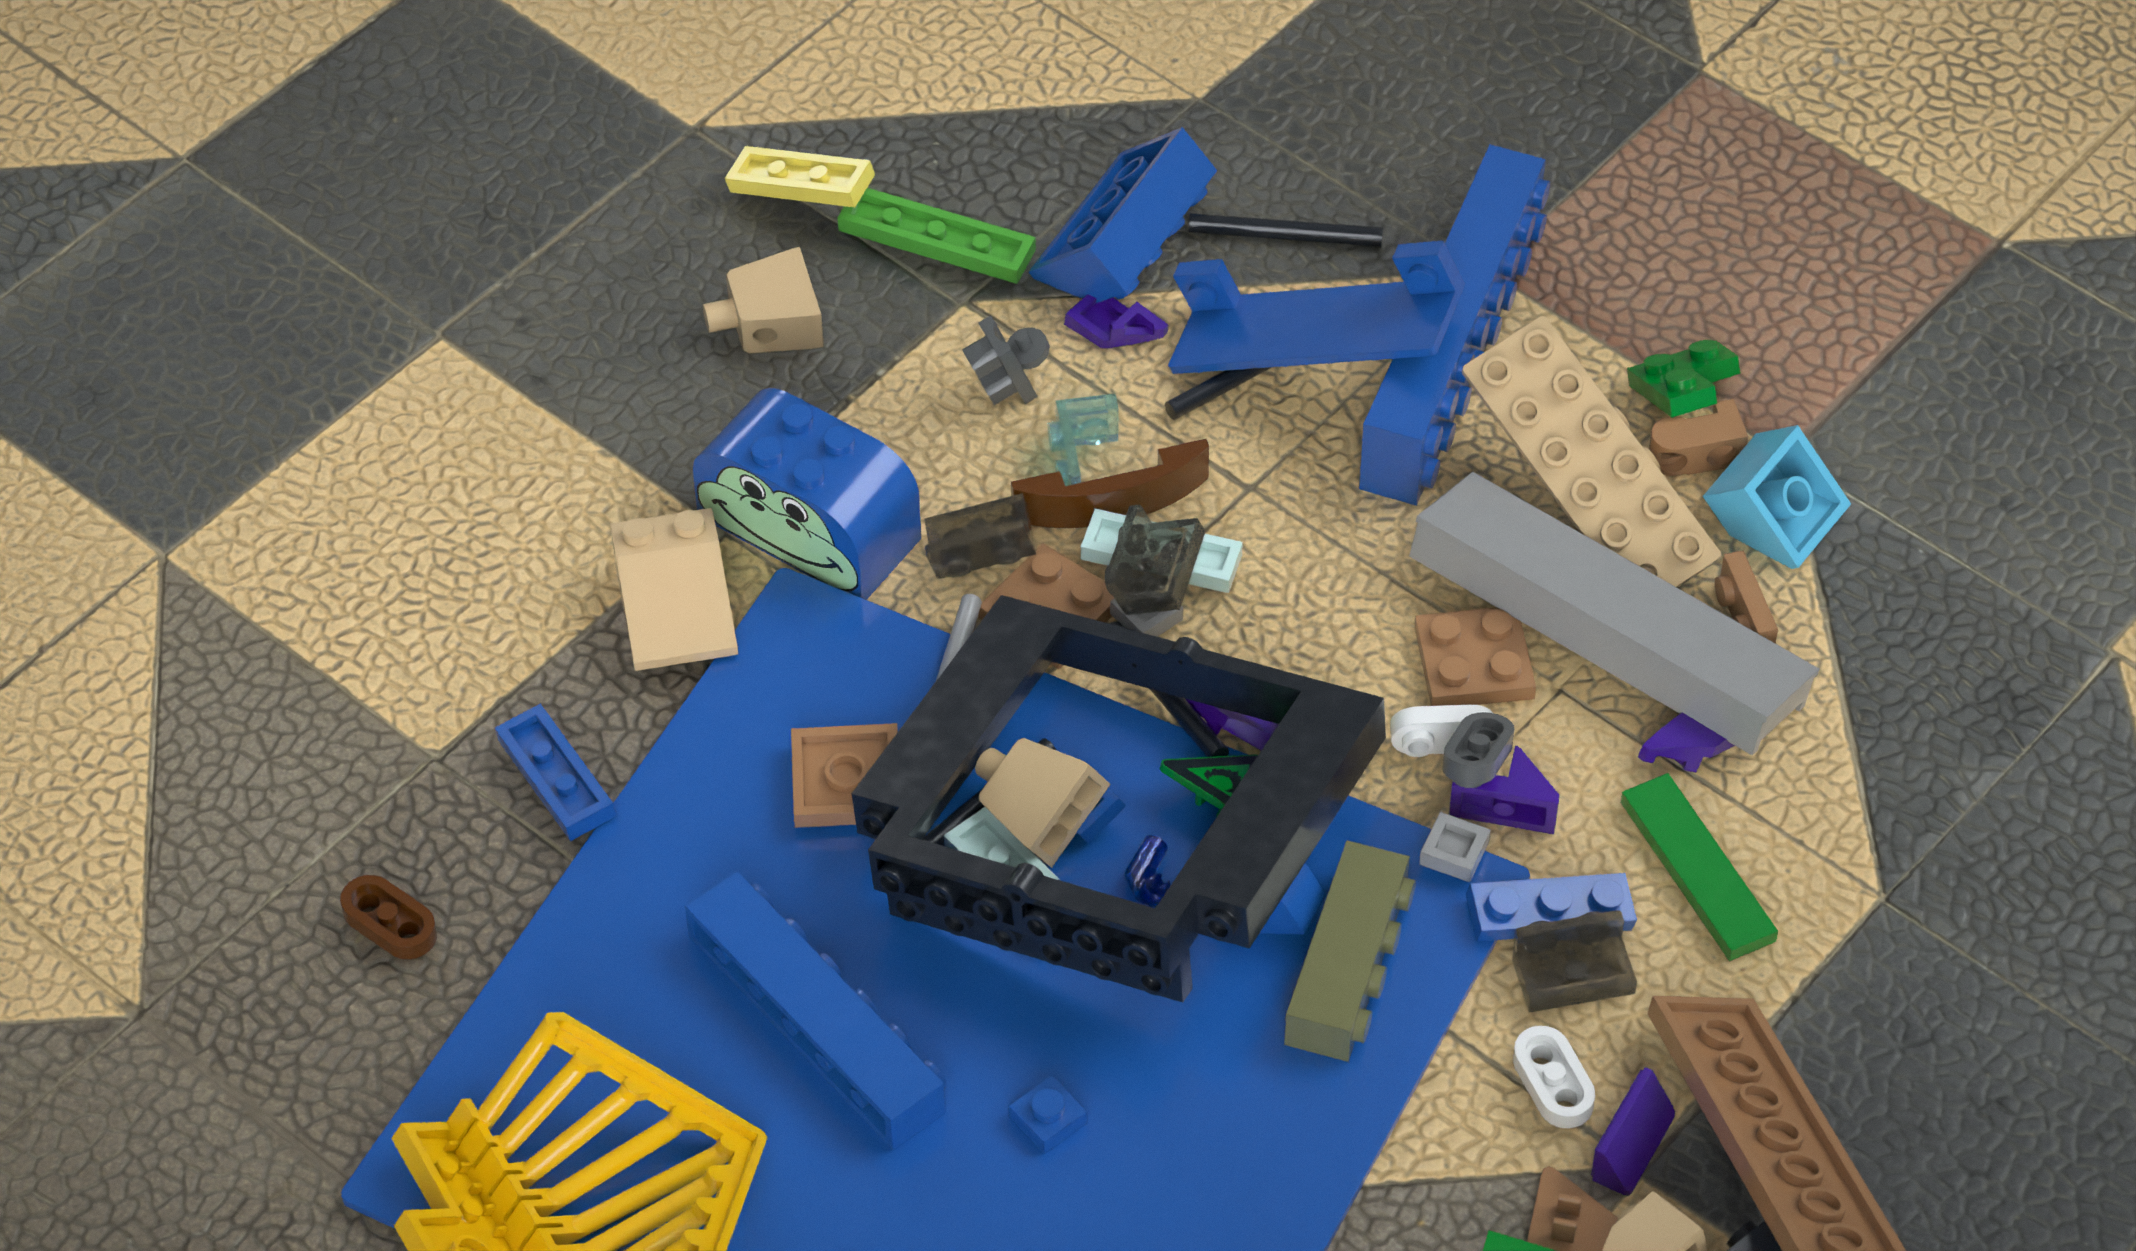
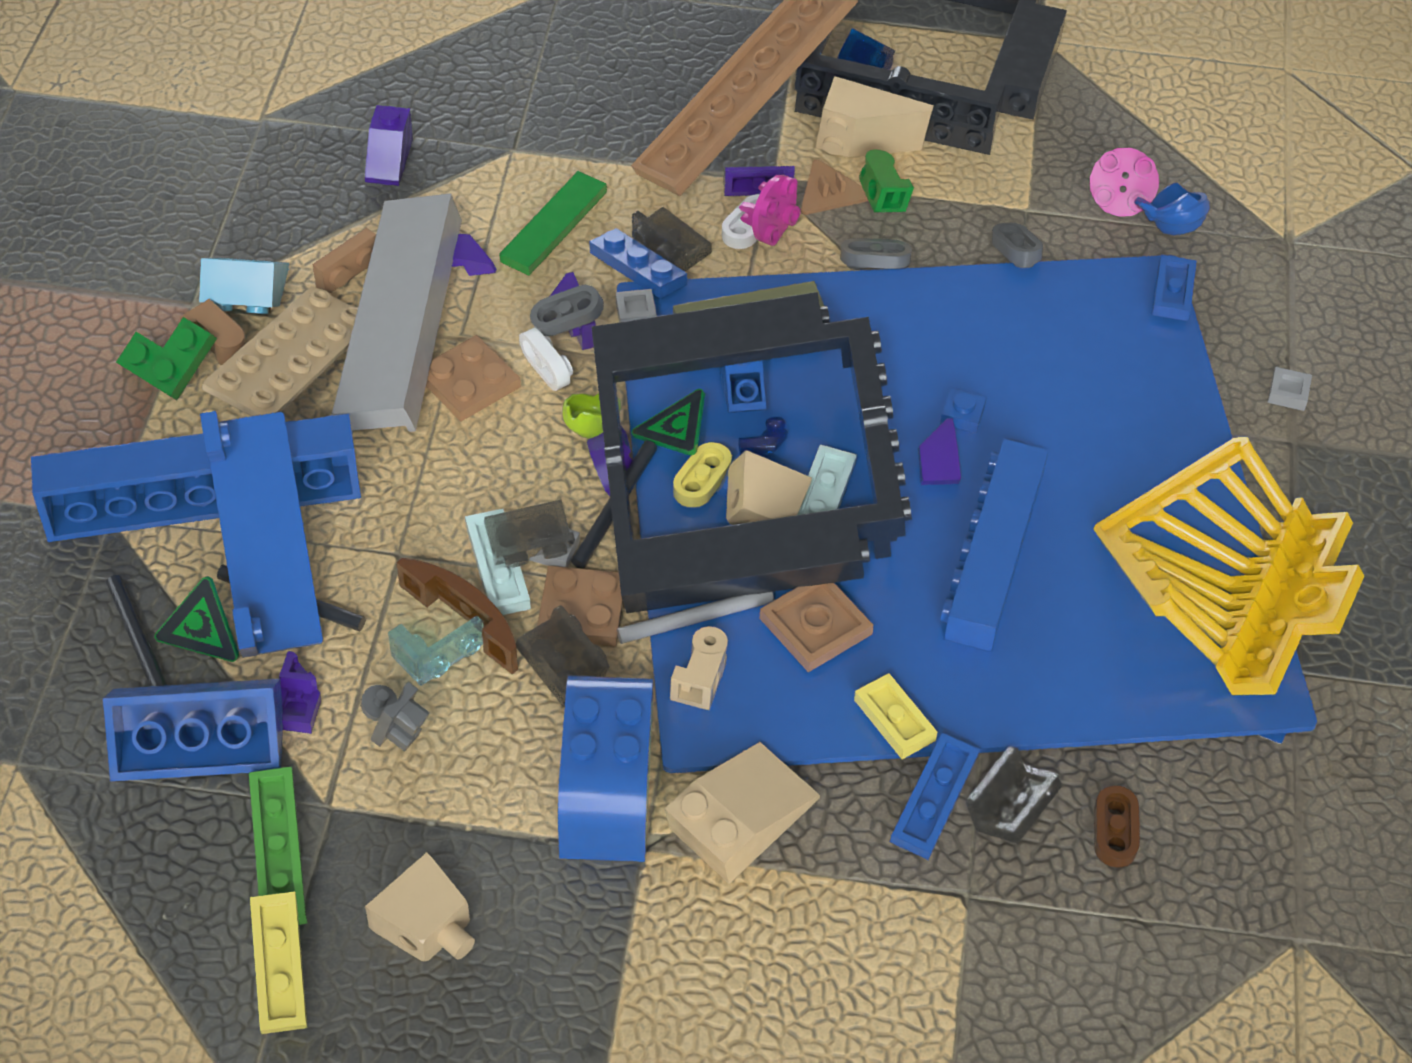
camera: 125 degrees left, 0 degrees up
(496, 838) = (1011, 797): none -> clear smoke bracket
(669, 778) = (895, 716): none -> light yellow plate
(861, 641) = (701, 678): none -> tan leg
(989, 1033) = (940, 456): none -> dark purple slope
(1139, 781) = (699, 477): none -> light yellow plate
(1263, 270) = (200, 624): none -> black piece
(1391, 1190) = (875, 253): none -> dark grey plate
(1534, 1085) = (773, 209): none -> dark pink plate
(1953, 742) = (388, 145): none -> slope

